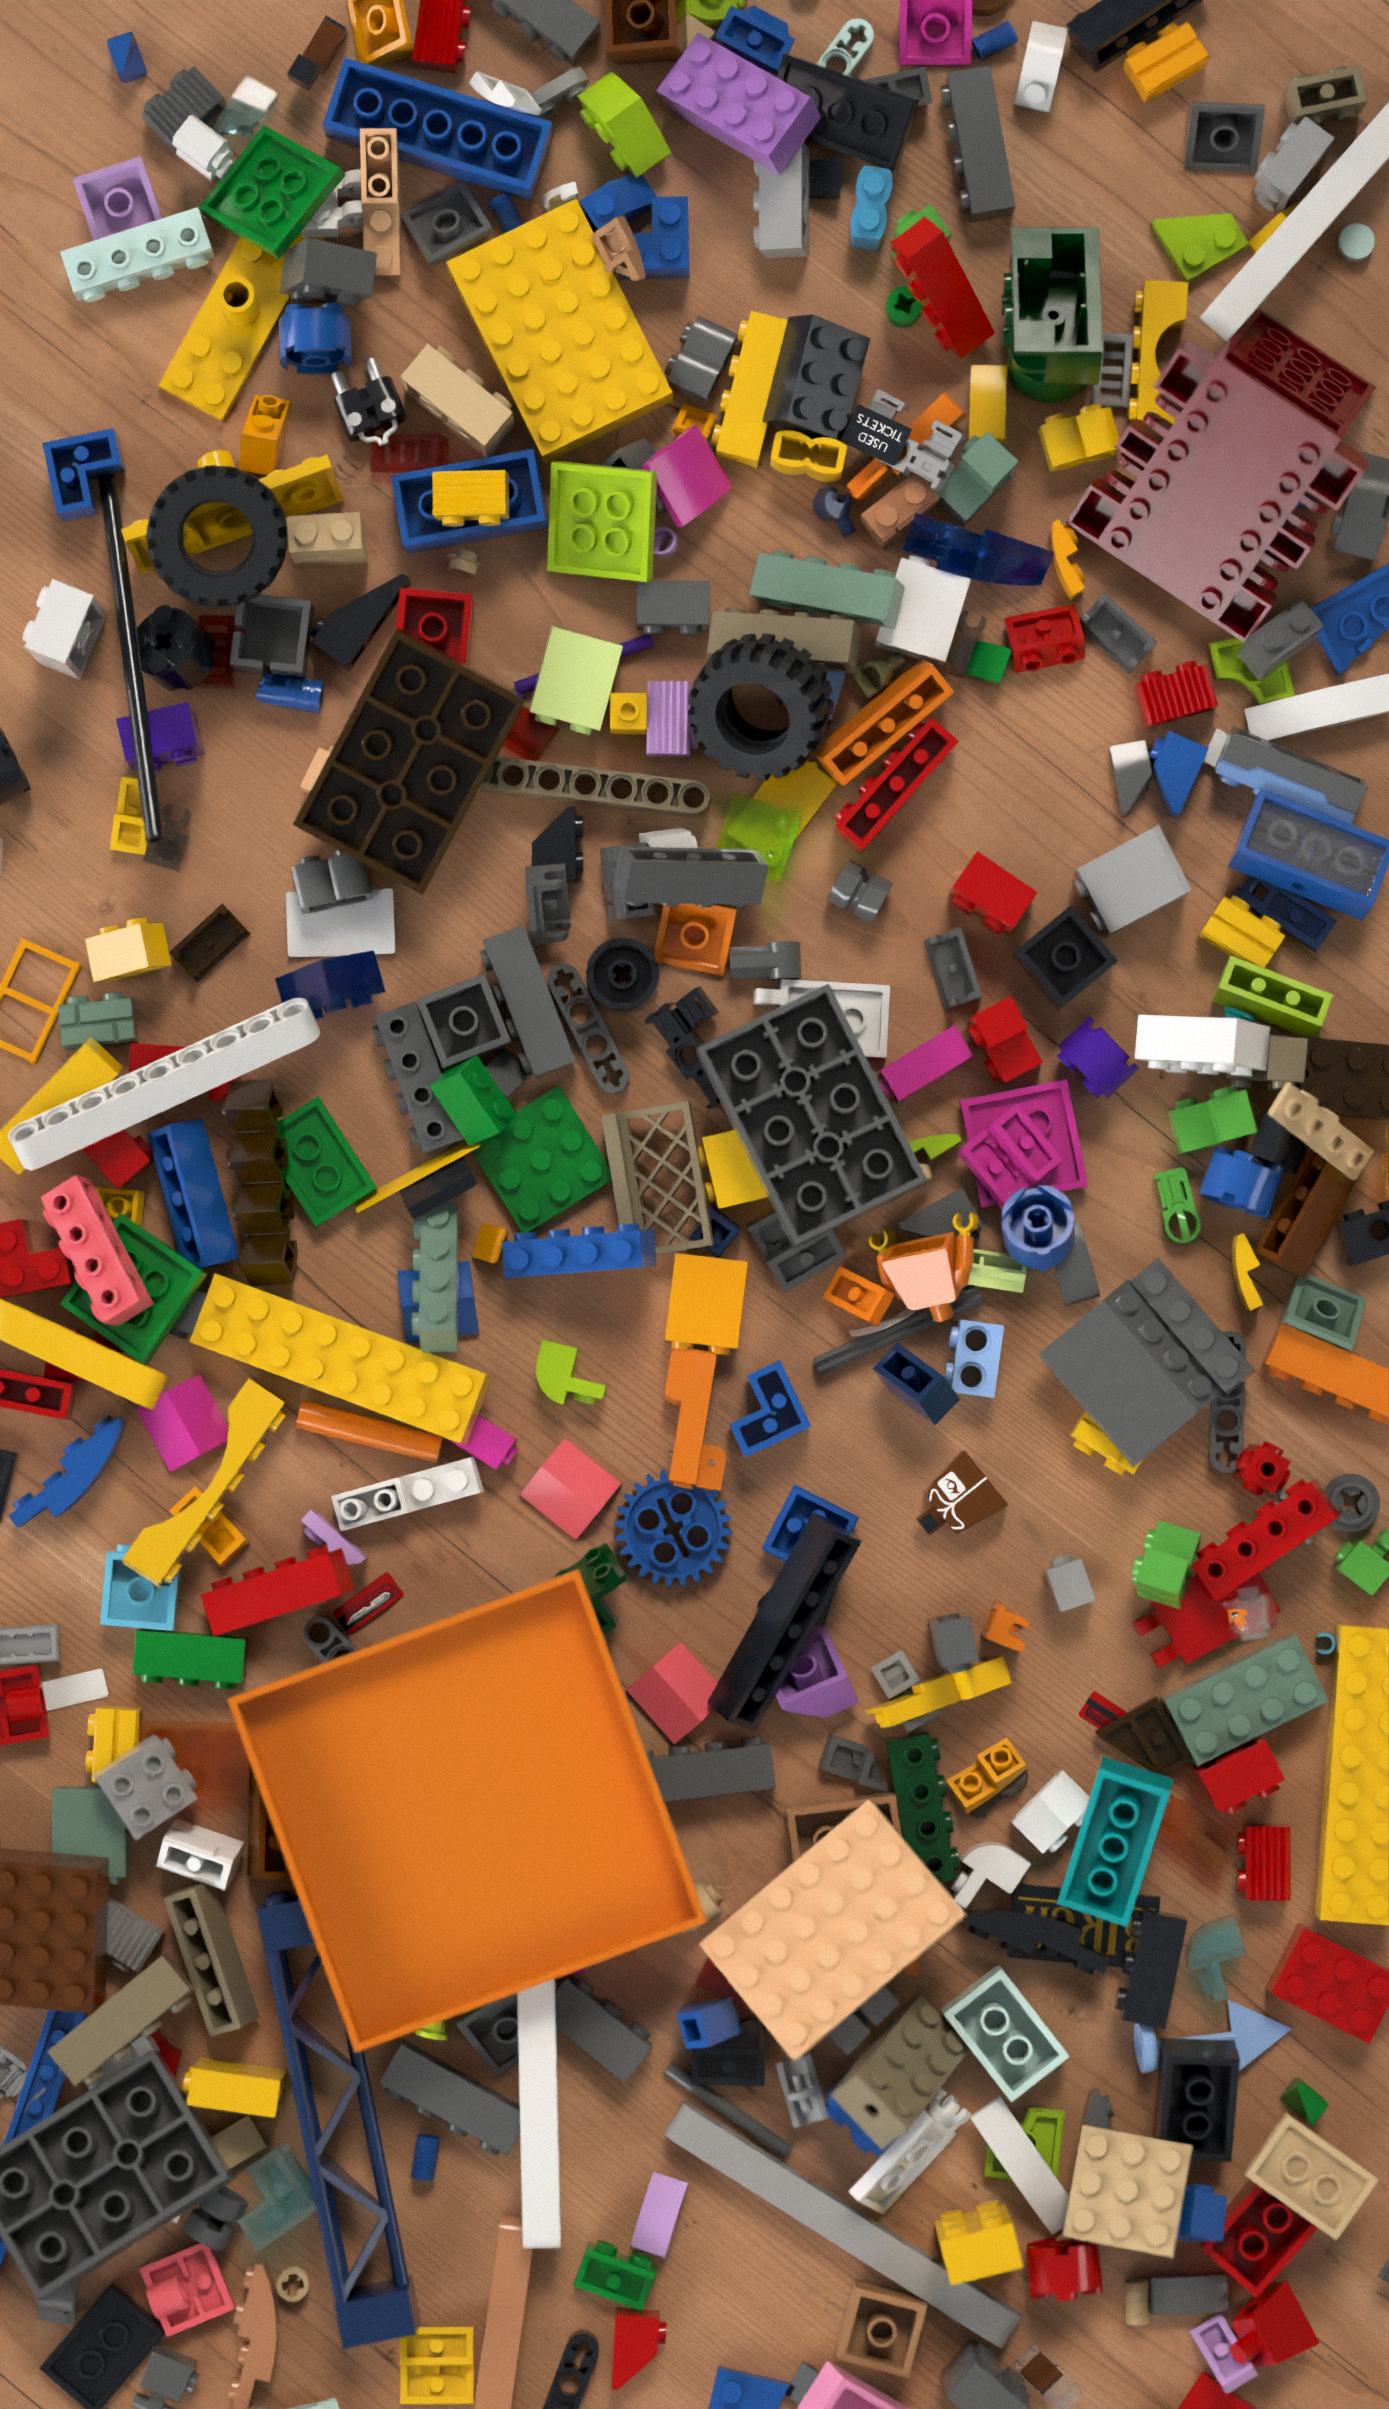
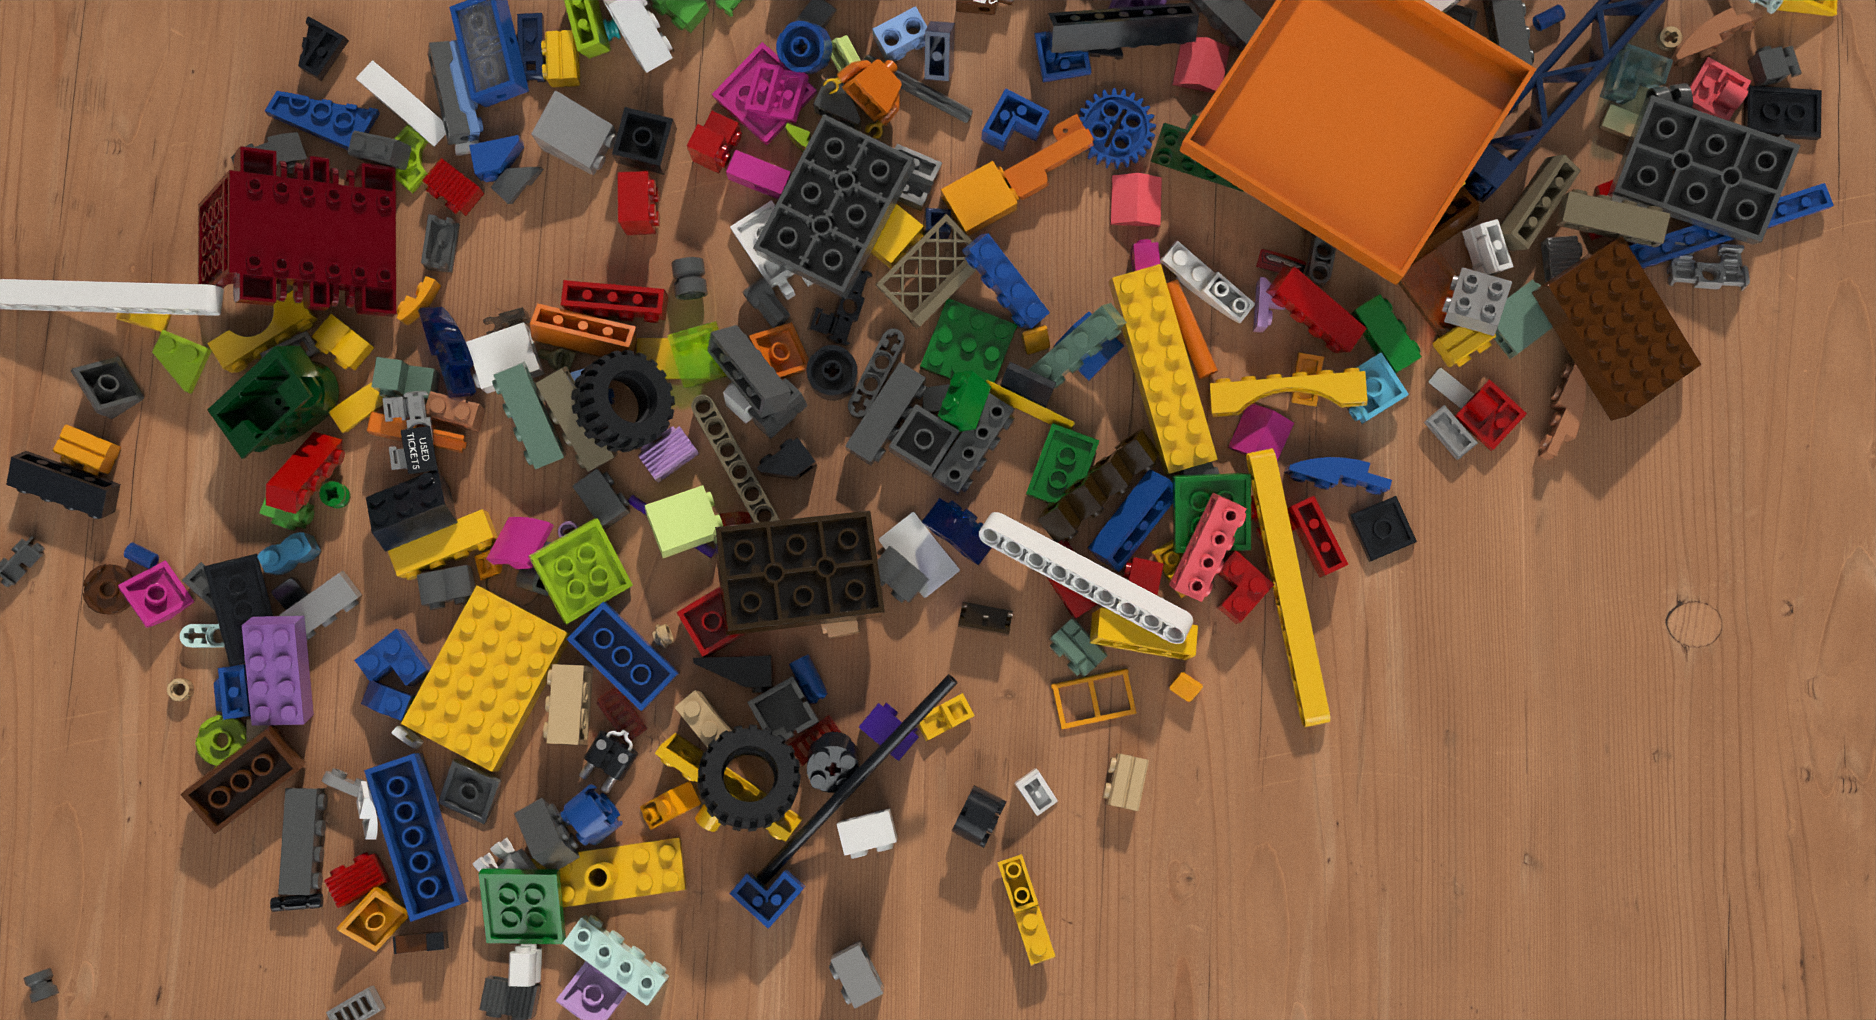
camera: 130 degrees left, 5 degrees down
(128, 951) = (1025, 658): yellow brick -> none
(172, 849) = (958, 689): clear smoke plate -> none
(235, 2087) = (1595, 137): yellow brick -> none
(246, 108) = (483, 961): clear light blue slope -> none
(381, 197) = (478, 839): light nougat slope -> none
(470, 497) = (619, 651): yellow brick -> none
(500, 209) = (440, 761): blue piece -> none
(547, 903) = (822, 444): dark grey hinge -> none
(555, 1377) = (1079, 251): lime brick -> none
(619, 249) = (412, 674): medium nougat slope -> none
(624, 122) = (335, 730): lime brick -> none
(628, 713) = (681, 477): yellow brick -> none
(798, 454) = (458, 477): yellow brick -> none
(830, 509) = (479, 452): dark blue piece -> none
(858, 1296) = (914, 118): orange slope -> none
(887, 1323) = (919, 97): white sticker -> none
(953, 968) = (694, 198): dark grey hinge -> none
(979, 144) = (208, 520): dark grey brick -> none
(988, 662) = (506, 299): green slope -> none
(1040, 66) = (135, 515): white brick -> none
(1045, 638) = (471, 281): red bracket -> none
(1097, 1058) = (687, 82): dark purple brick -> none
(1286, 172) = (97, 333): light grey brick -> none
(1326, 96) = (39, 340): dark tan brick -> none
(1355, 242) = (121, 271): light aqua tile -> none

